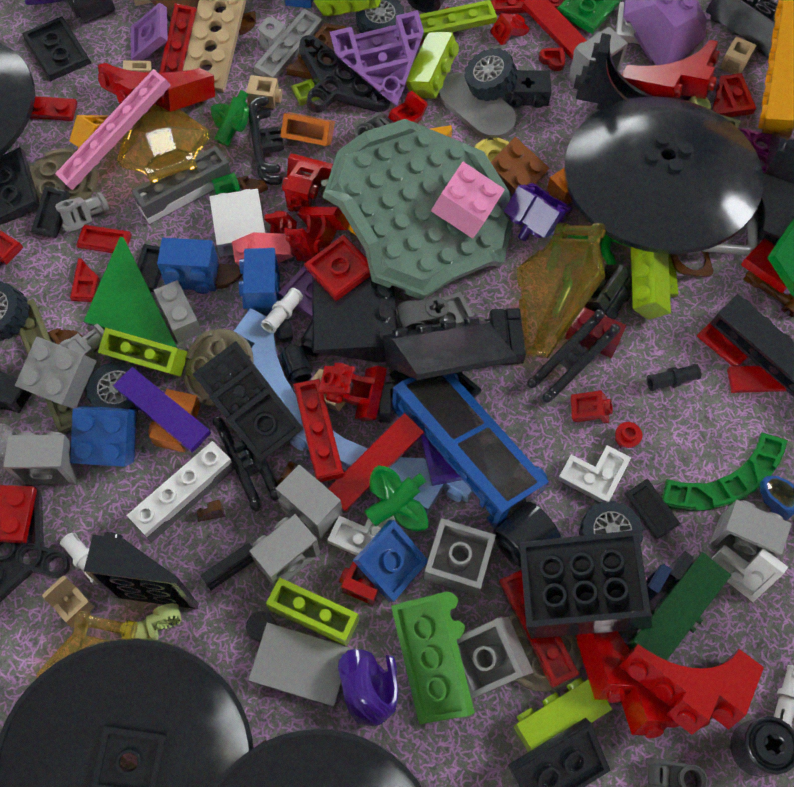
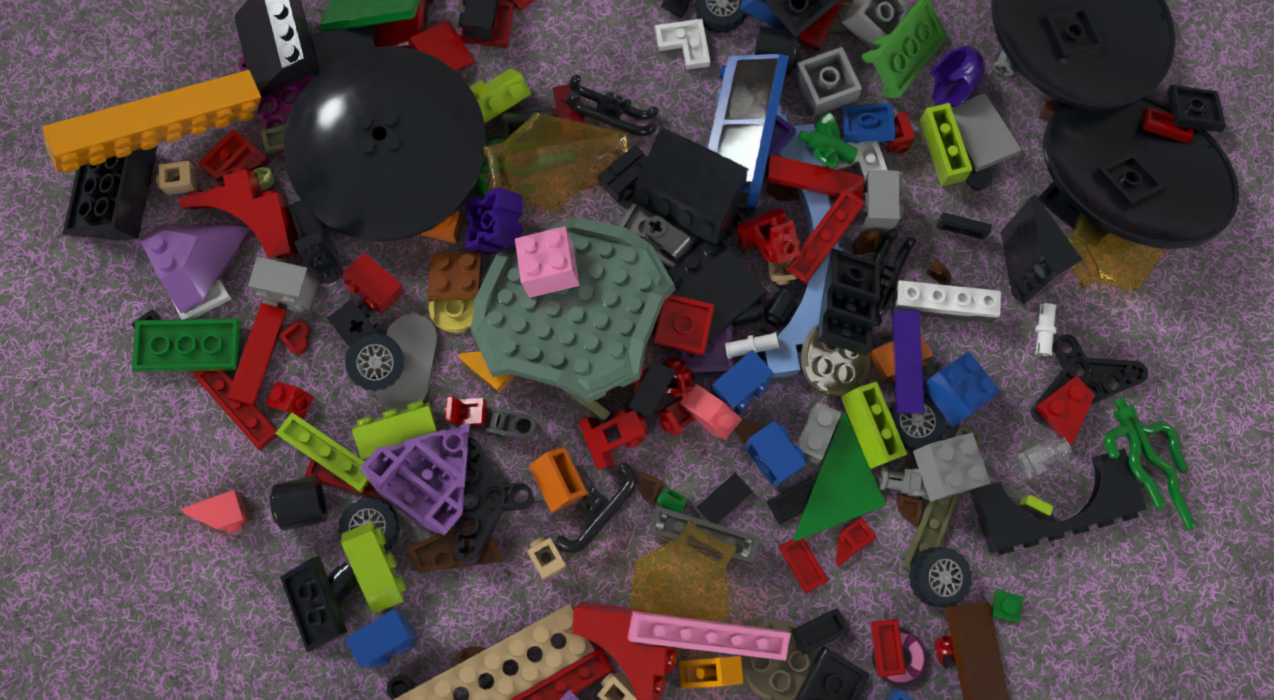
camera: 130 degrees left, 10 degrees up
(40, 459) = (1016, 415): light grey brick -> none
(67, 600) = (1080, 309): tan bracket -> none
(78, 212) = (798, 603): light grey connector -> none
(196, 220) = (724, 499): none -> black tile
(230, 118) = (598, 558): green plant -> none
(235, 217) = (695, 460): white brick -> none
(283, 42) = (471, 591): light grey plate -> none
(285, 550) = (928, 190): light grey brick -> none
(301, 91) = (510, 527): lime tile -> none
(313, 213) = (650, 387): none -> black tile
(554, 114) = (372, 284): none -> red brick
(591, 406) = (635, 77): red bracket -> none
(628, 435) = (638, 37): red plate -> none
(673, 377) = (561, 39): black pin -> none
(725, 275) = (445, 44): none -> red tile

